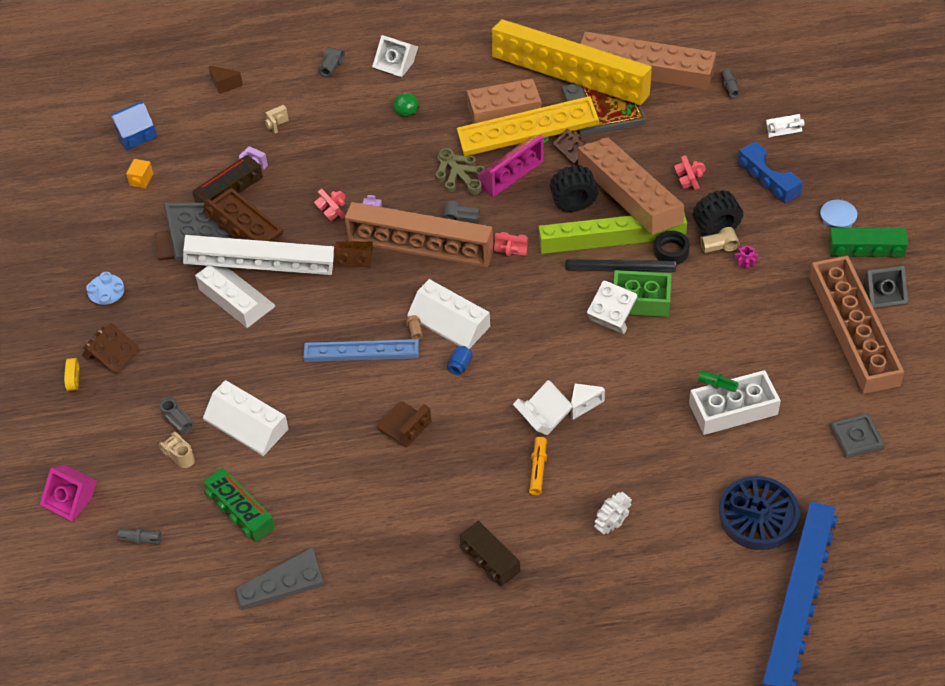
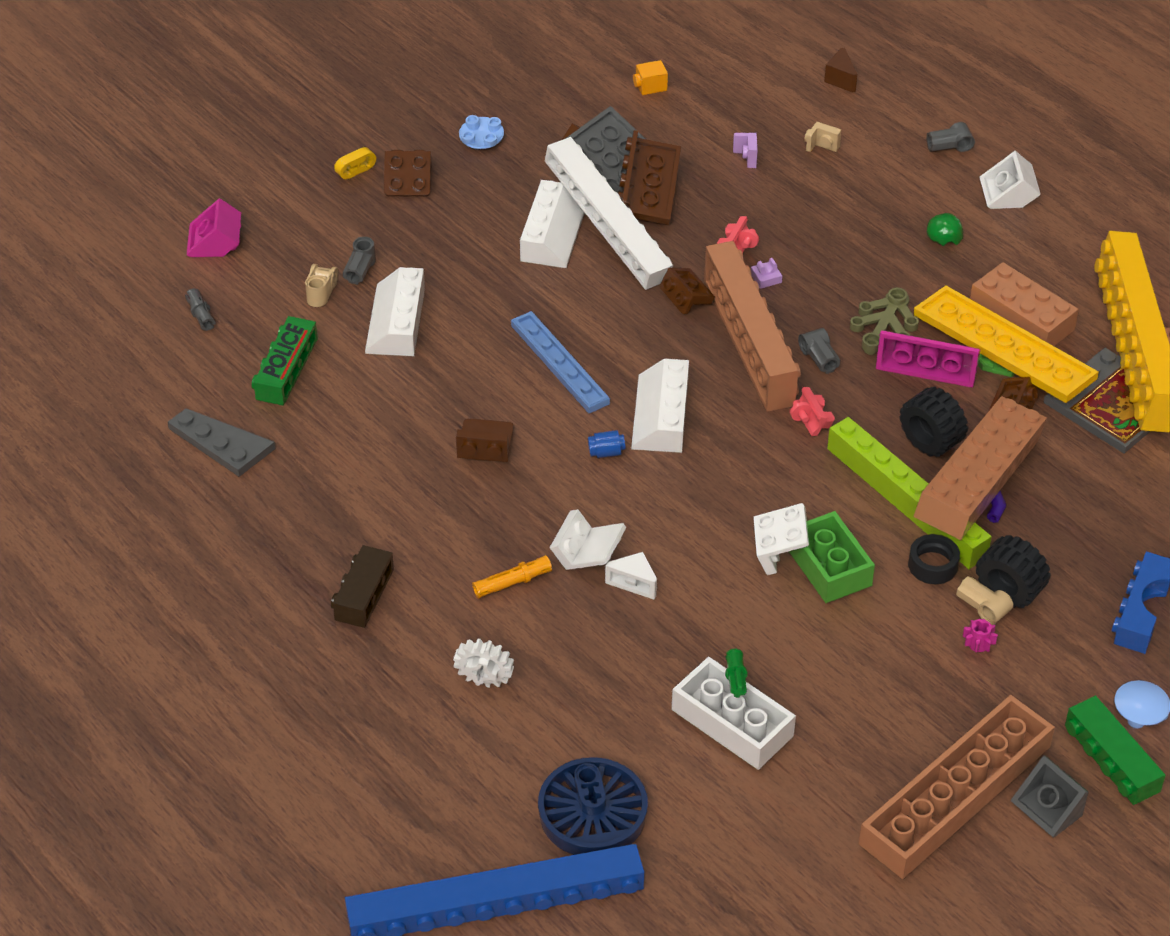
camera: 55 degrees right, 5 degrees down
(133, 125) = (706, 37): slope -> none
(237, 176) = (701, 147): dark brown brick -> none
(413, 323) = (628, 383): medium nougat pin -> none
(622, 265) = (867, 525): black axle -> none
(696, 169) = (1073, 523): coral hips -> none
(857, 435) = (787, 863): dark grey tile -> none

